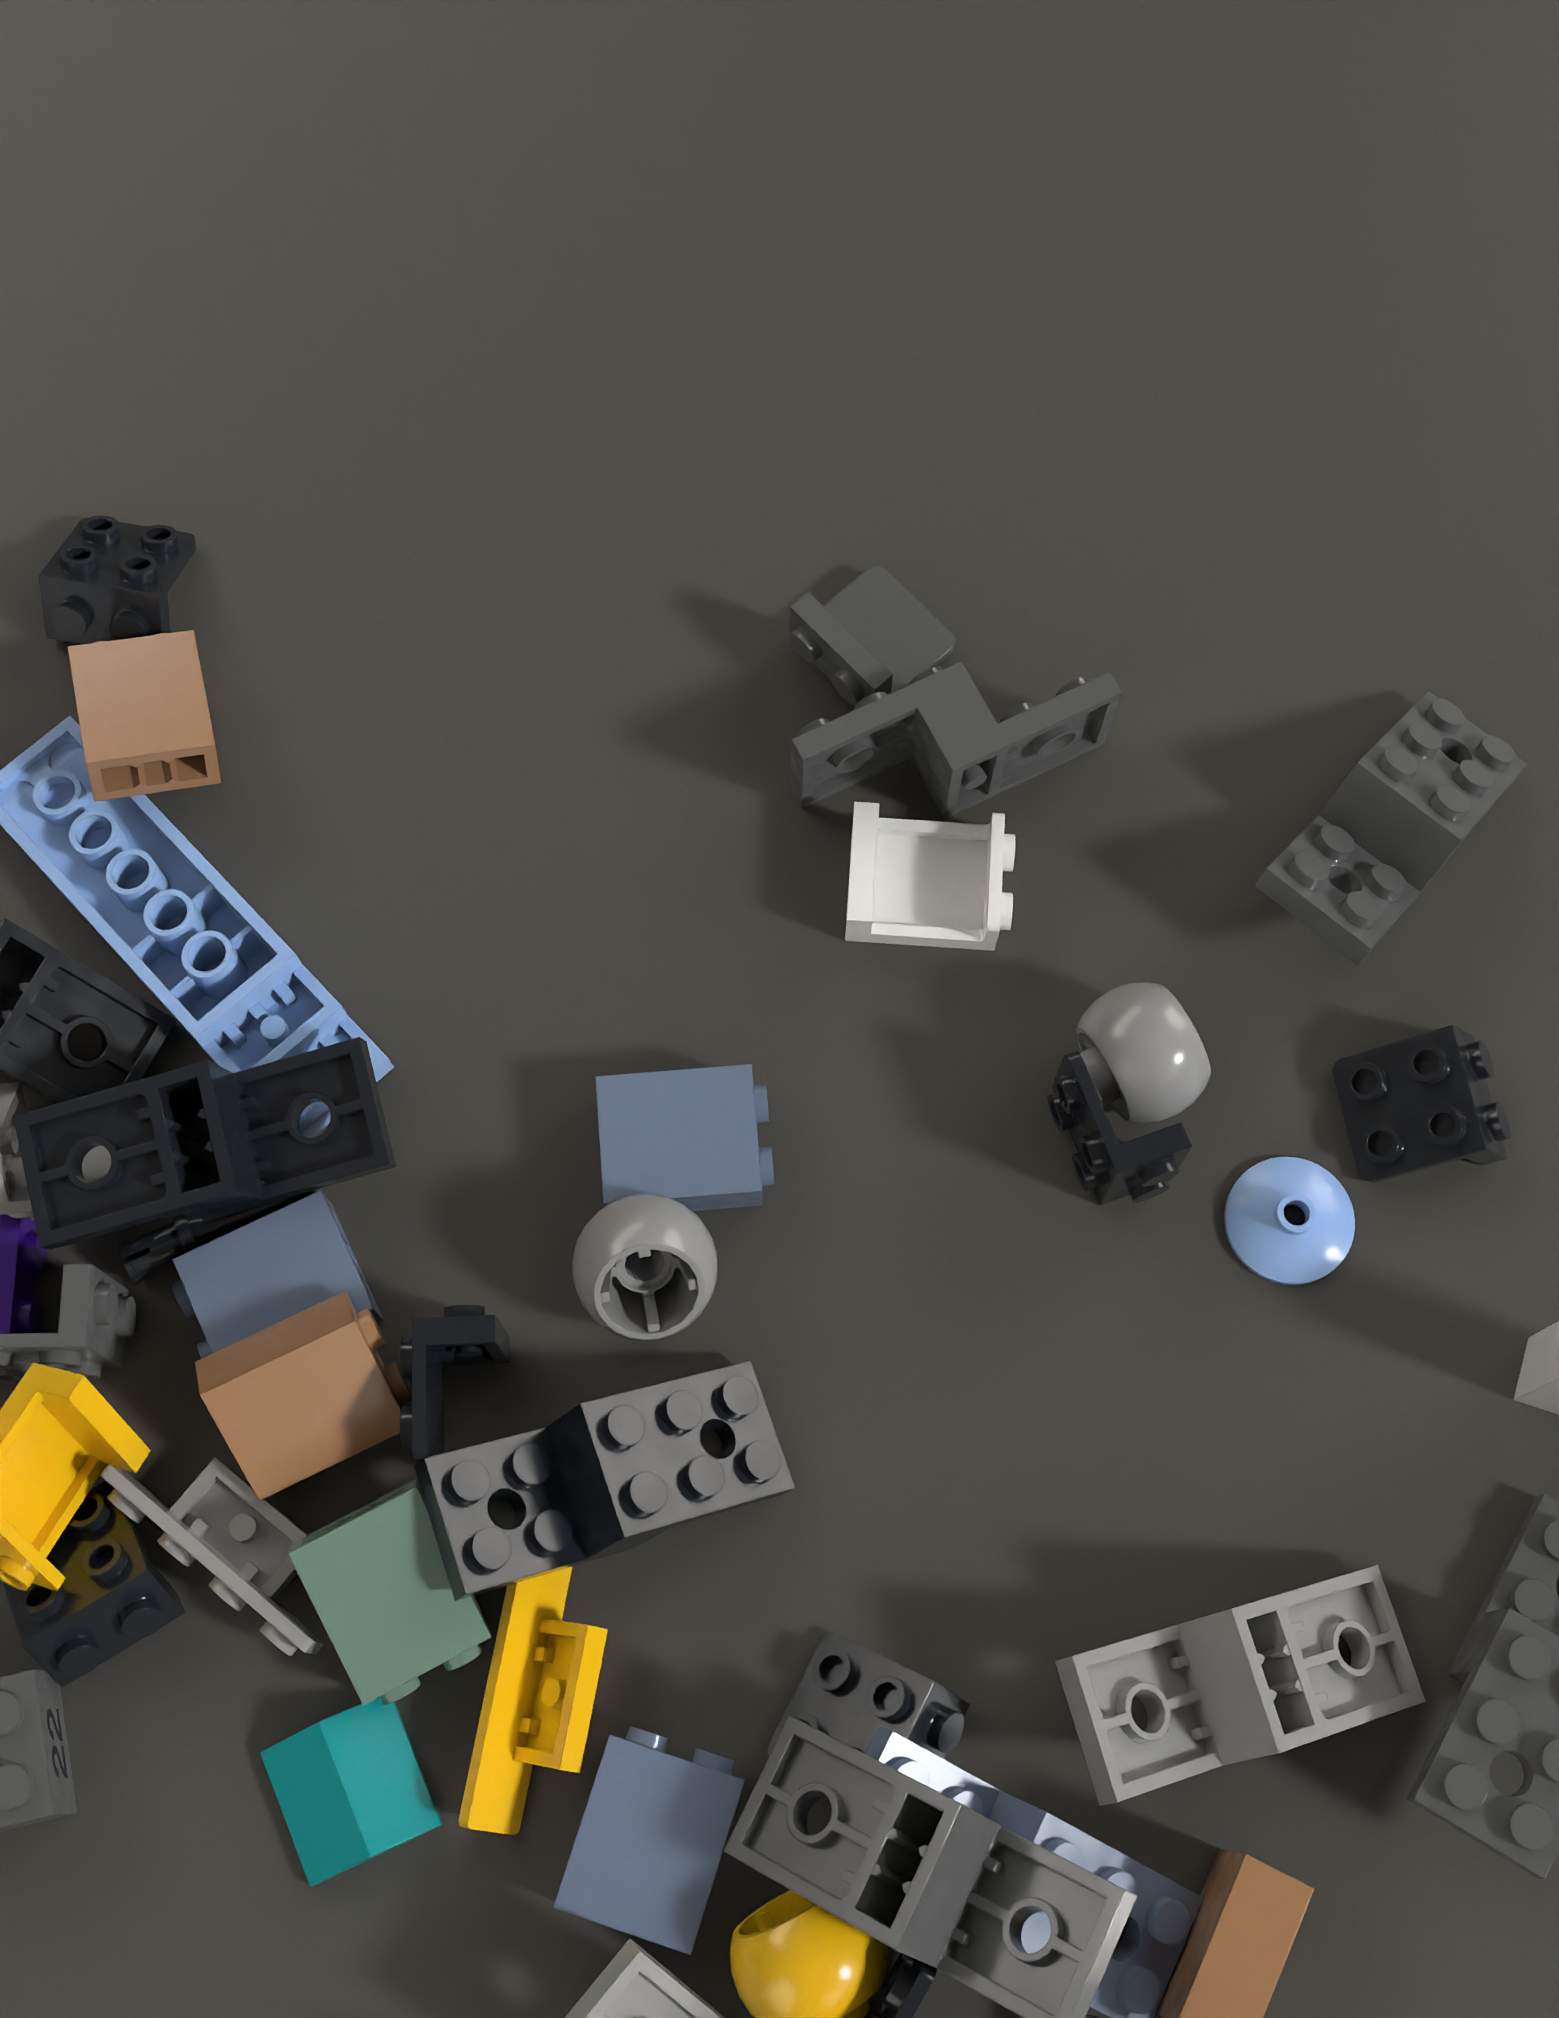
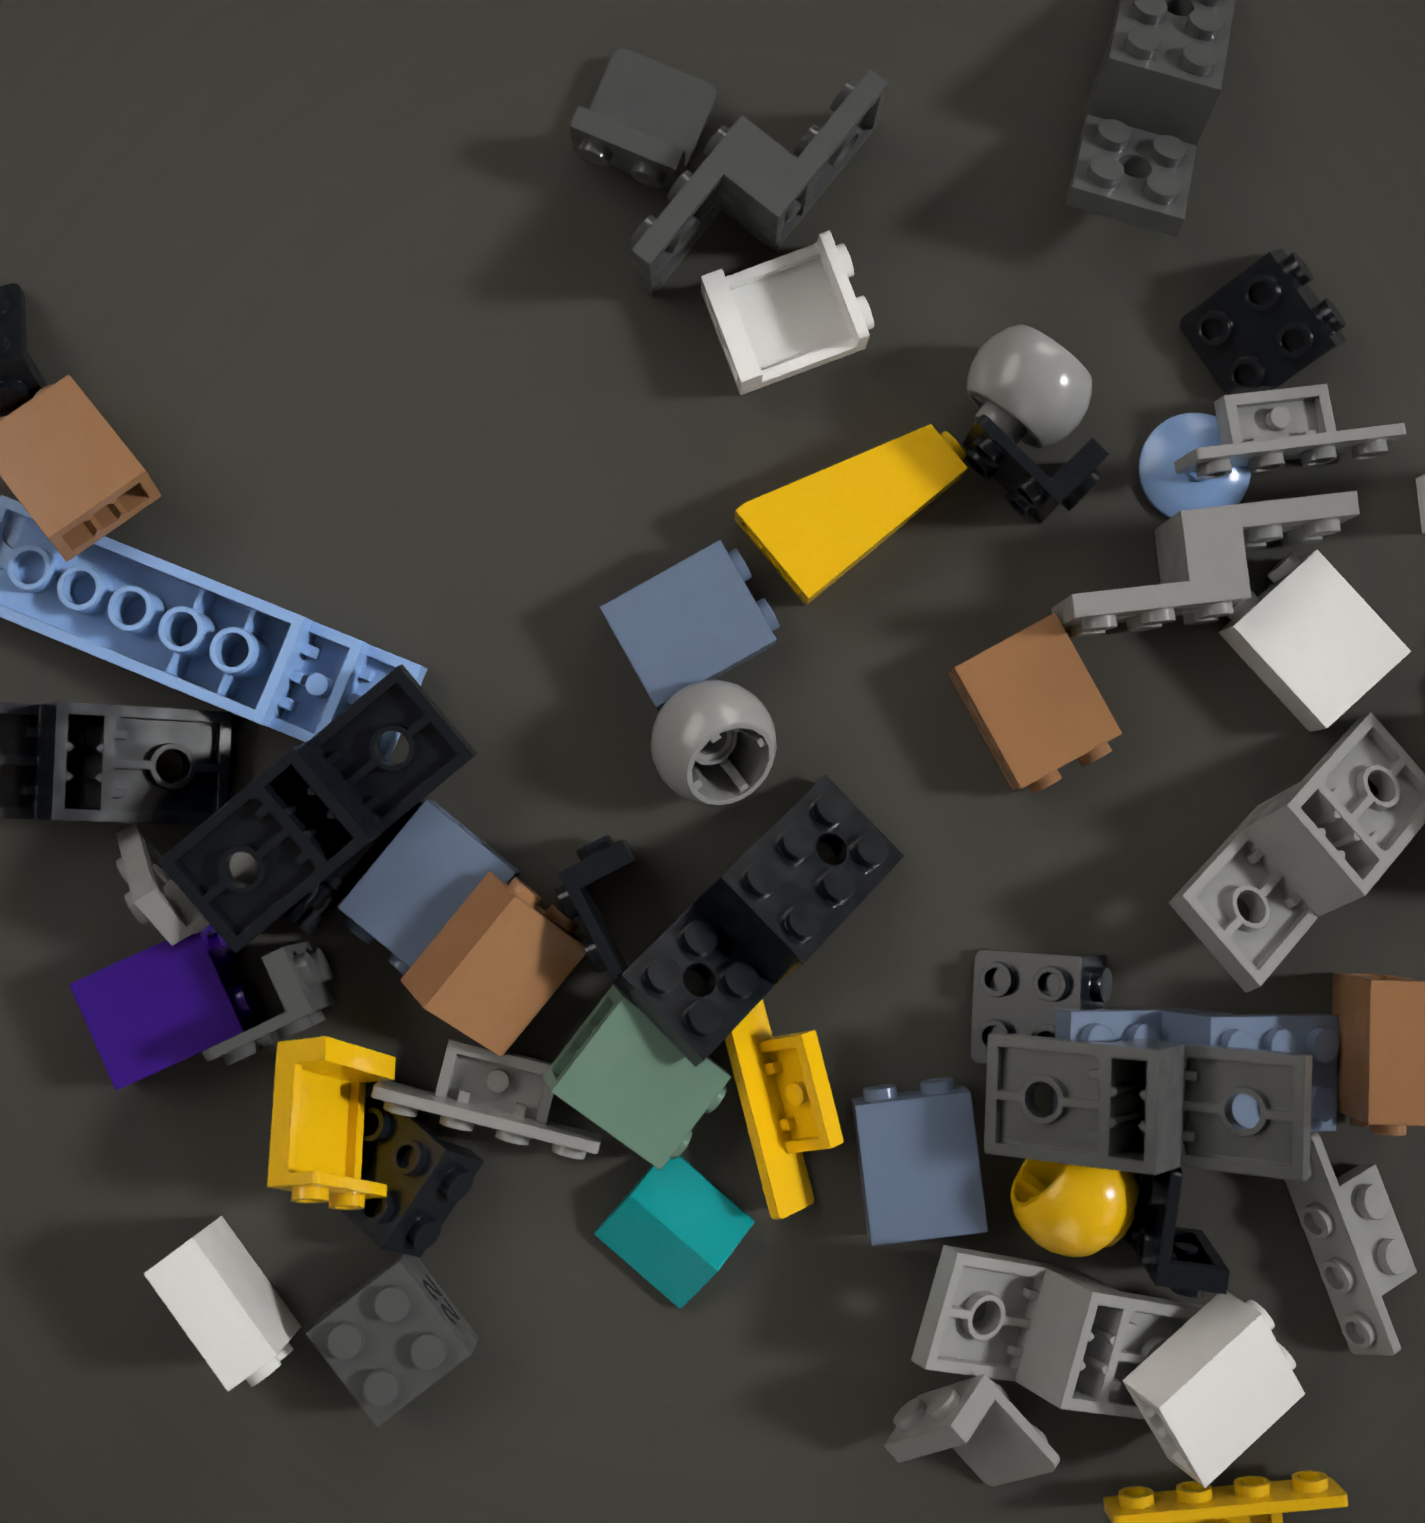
camera: 30 degrees left, 15 degrees up
(904, 1097) = (844, 512): none -> yellow slope
(1009, 1387) = (1036, 705): none -> medium nougat brick
(1253, 1314) = (1206, 563): none -> light grey bracket
(1342, 1454) = (1313, 640): none -> white brick
(1398, 1213) = (1282, 426): none -> light grey bracket

